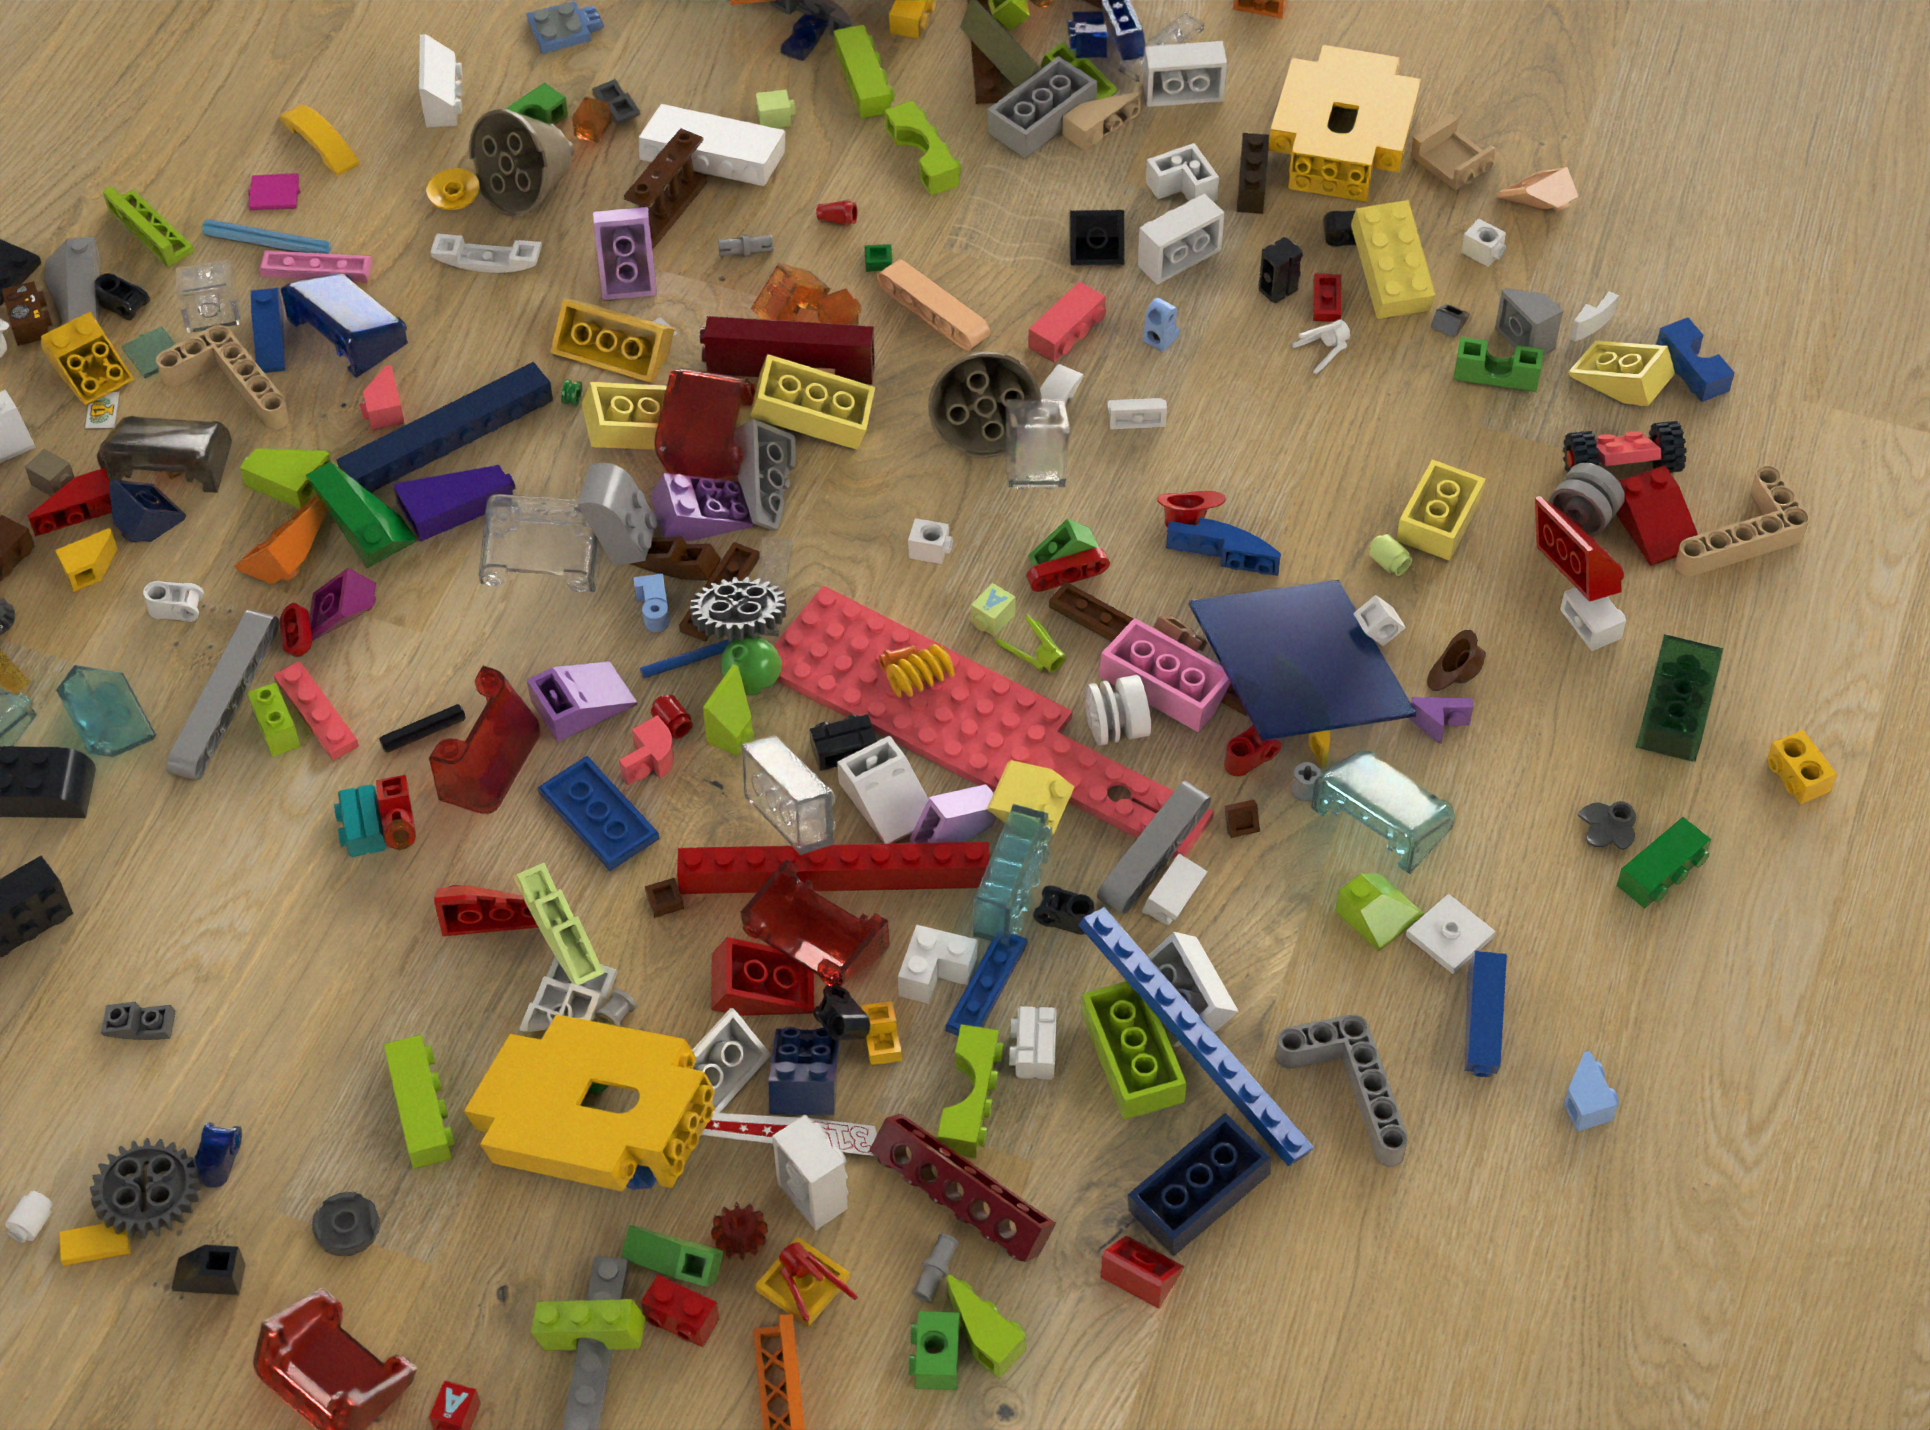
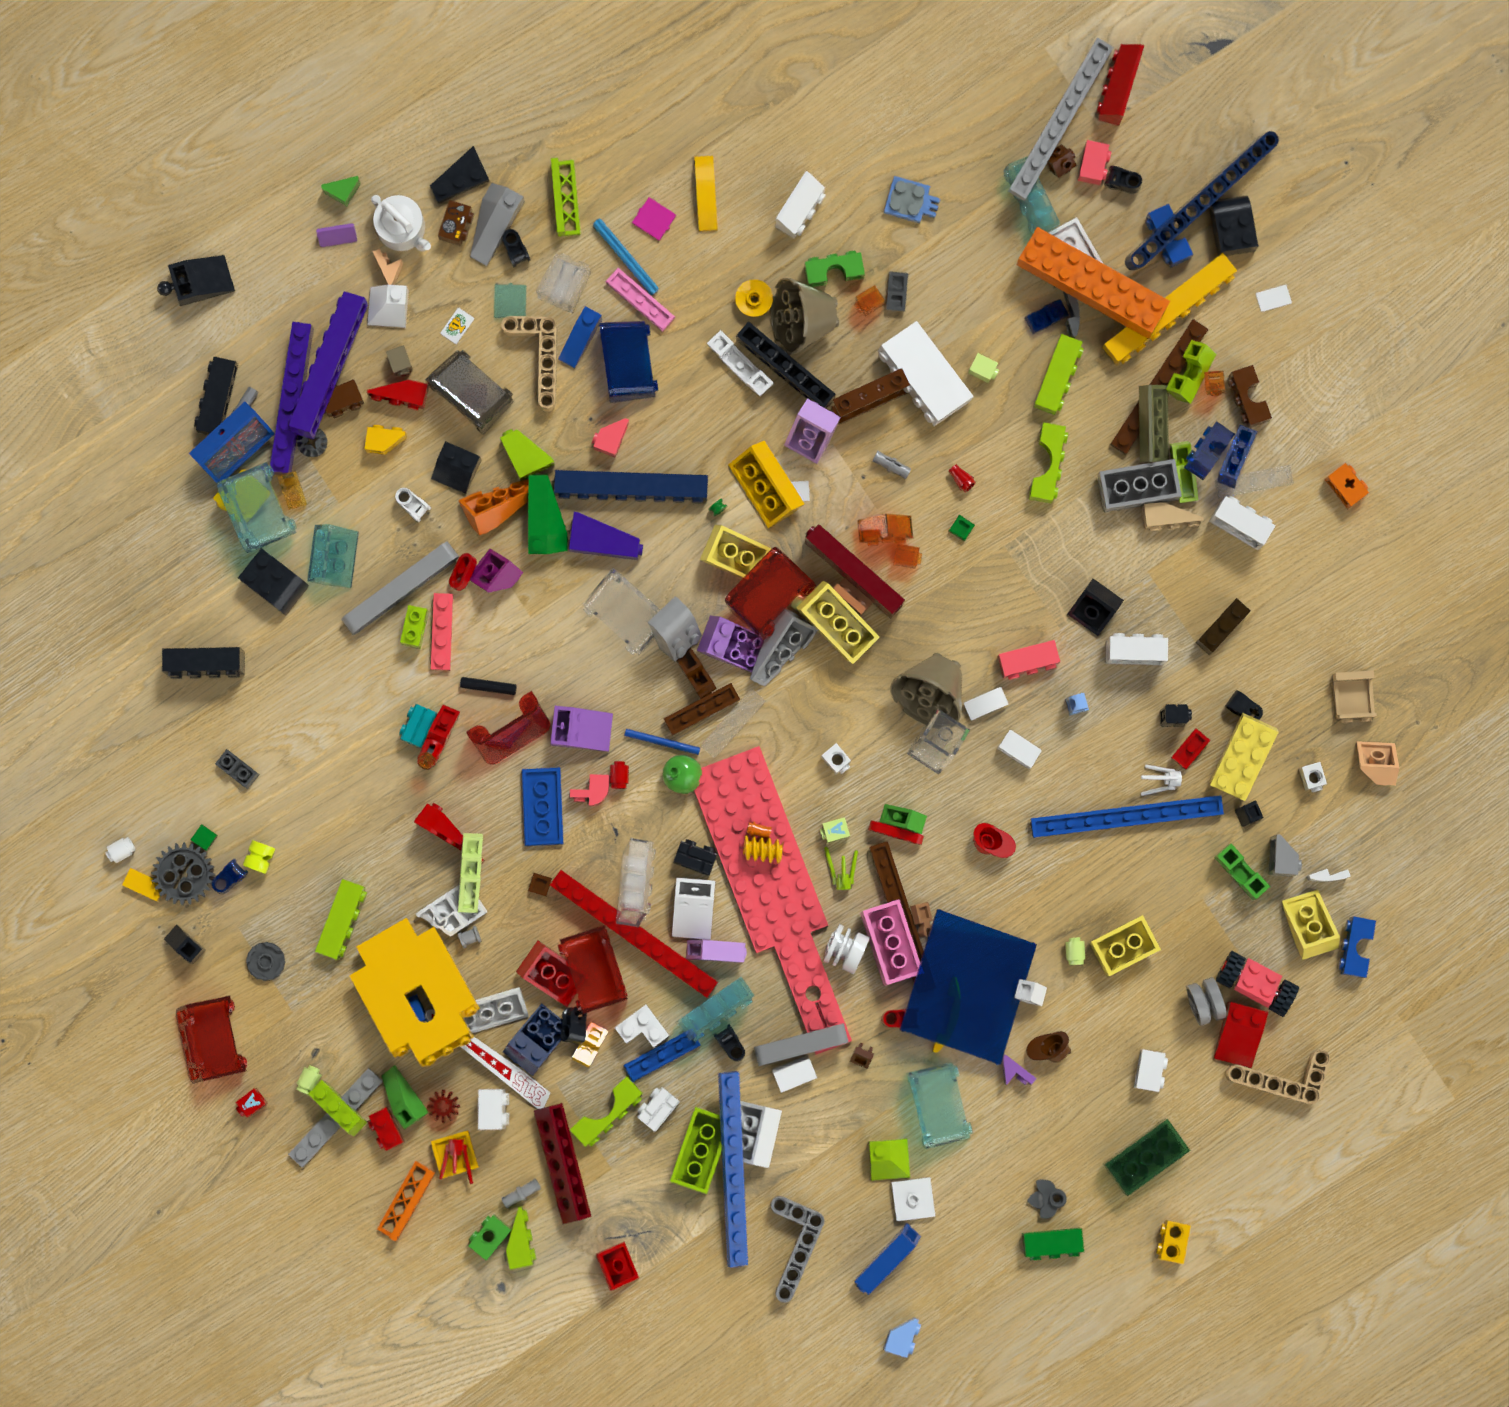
camera: 30 degrees right, 30 degrees up
(85, 359) = (467, 286): yellow slope -> none
(142, 510) = (433, 424): dark blue slope -> none
(146, 1126) = (204, 837): none -> green tile
(205, 533) = (456, 467): none -> black slope
(243, 1097) = (259, 856): none -> neon yellow wheel
(517, 1325) = (308, 1079): none -> yellowish green brick
(530, 221) = (784, 365): none -> black brick
(655, 609) = (659, 698): light blue leg -> none
(728, 714) = (647, 802): lime slope -> none
(738, 608) = (684, 749): dark grey gear -> none
(933, 305) = (964, 590): light nougat beam -> none
(1031, 788) = (760, 970): light yellow slope -> none
(1183, 171) = (1183, 598): white brick -> none
(1199, 1184) = (675, 1246): dark blue brick -> none
(1236, 546) = (997, 886): blue slope -> none
(1305, 777) = (918, 1059): light grey bush -> none
(1317, 398) = (1127, 816): none -> blue plate
(1343, 162) = (1331, 604): yellow panel -> none
(1575, 553) = (1168, 1033): red slope -> none

